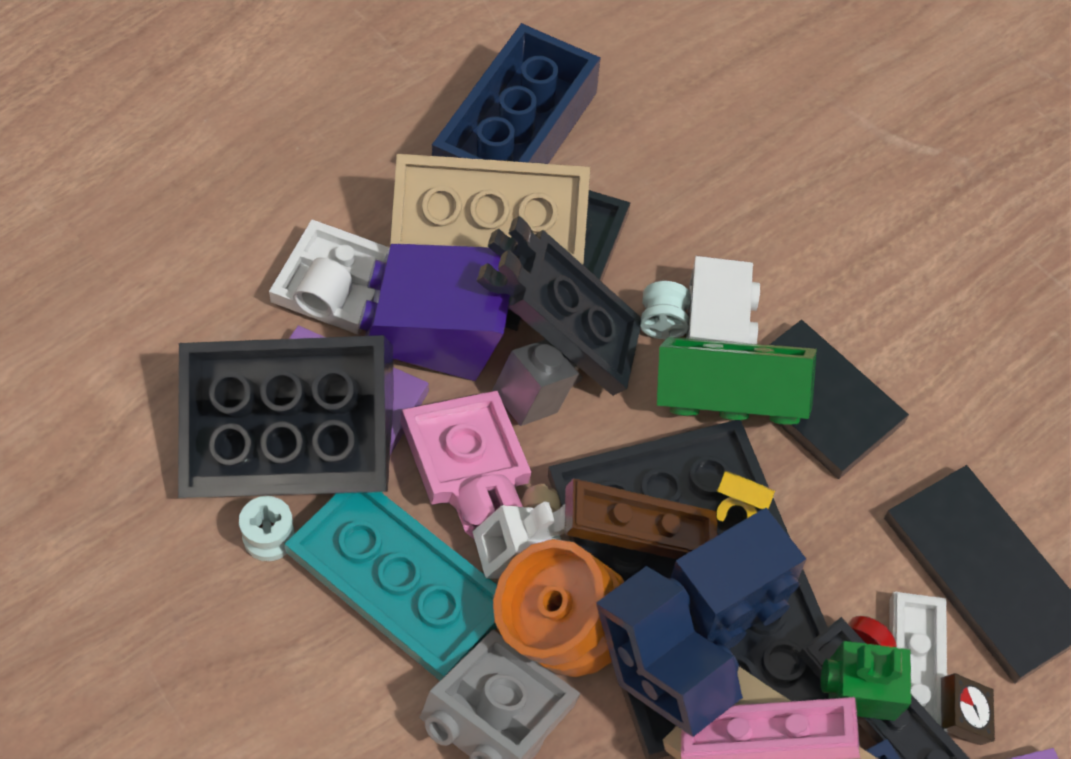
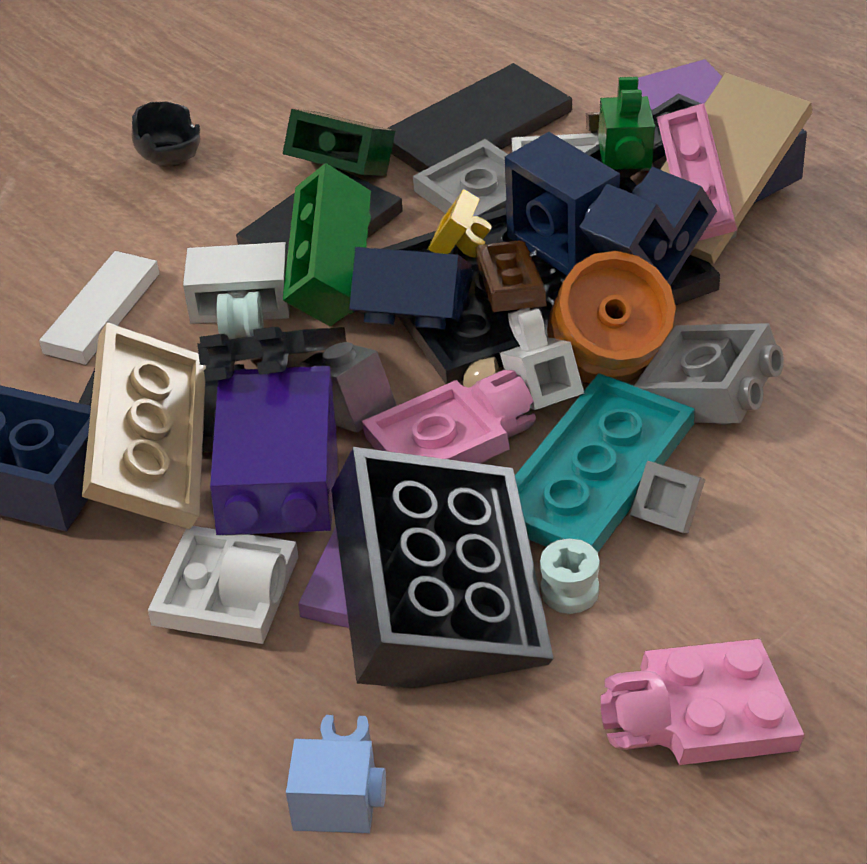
camera: 90 degrees left, 15 degrees down
(95, 604) = (702, 704): none -> bright pink plate
(107, 325) = (335, 781): none -> light blue brick
(336, 627) = (667, 497): none -> light grey plate
(654, 438) = (409, 286): none -> dark blue slope
(716, 211) = (102, 300): none -> white tile
(858, 549) = (475, 169): none -> light grey plate
(931, 415) = (339, 142): none -> dark green brick
(970, 263) = (164, 133): none -> black hair

